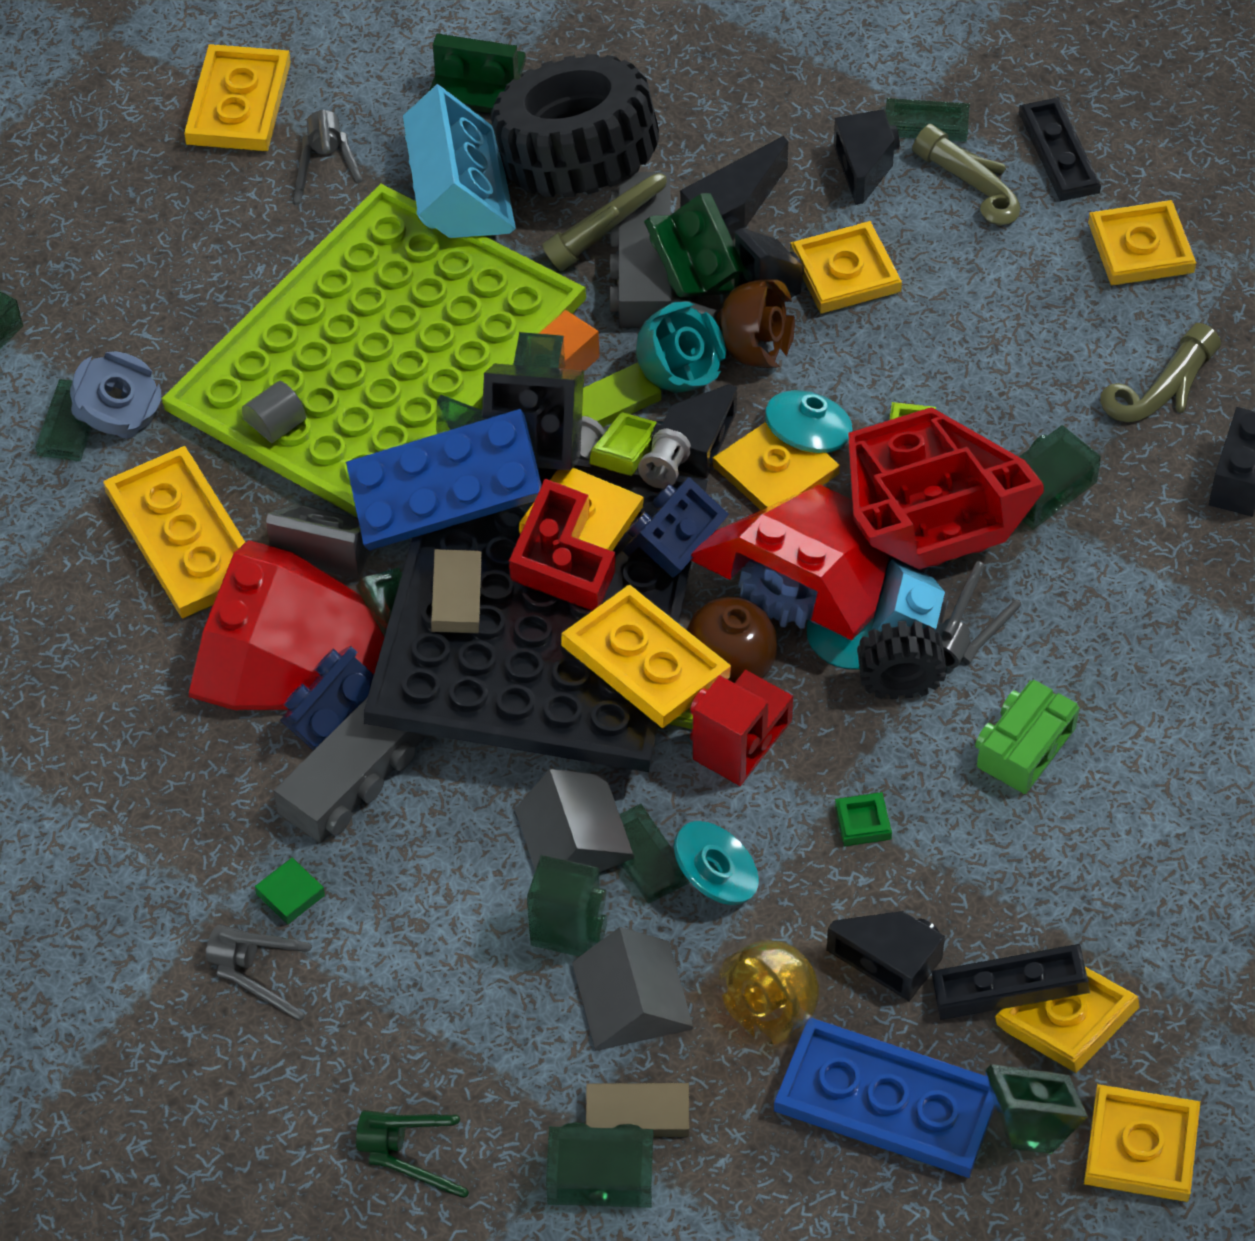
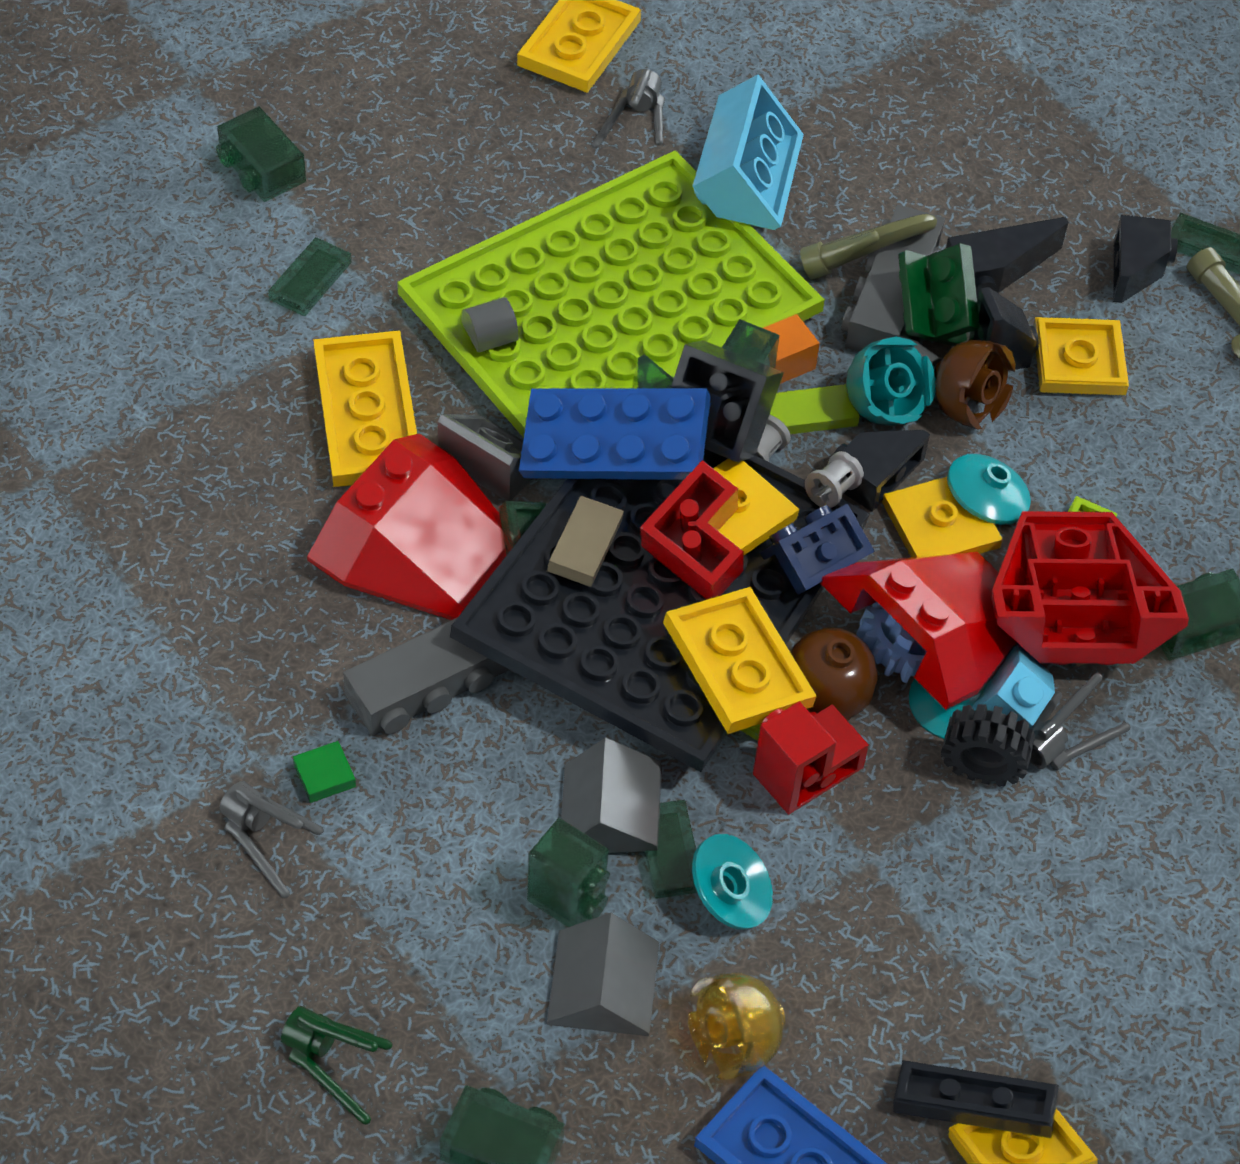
camera: 15 degrees right, 0 degrees up
(106, 413) = (345, 282): sand blue plate -> none
(329, 699) = (430, 604): dark blue bracket -> none
(475, 69) = (804, 77): dark green bracket -> none
(575, 125) = (871, 149): black tyre -> none
(623, 444) = (802, 454): lime tile -> none
(647, 1105) = (573, 1098): dark tan tile -> none
(863, 819) = (894, 887): green tile -> none
(888, 949) = (868, 1024): black slope -> none
(1026, 736) = (1085, 859): bright green brick -> none

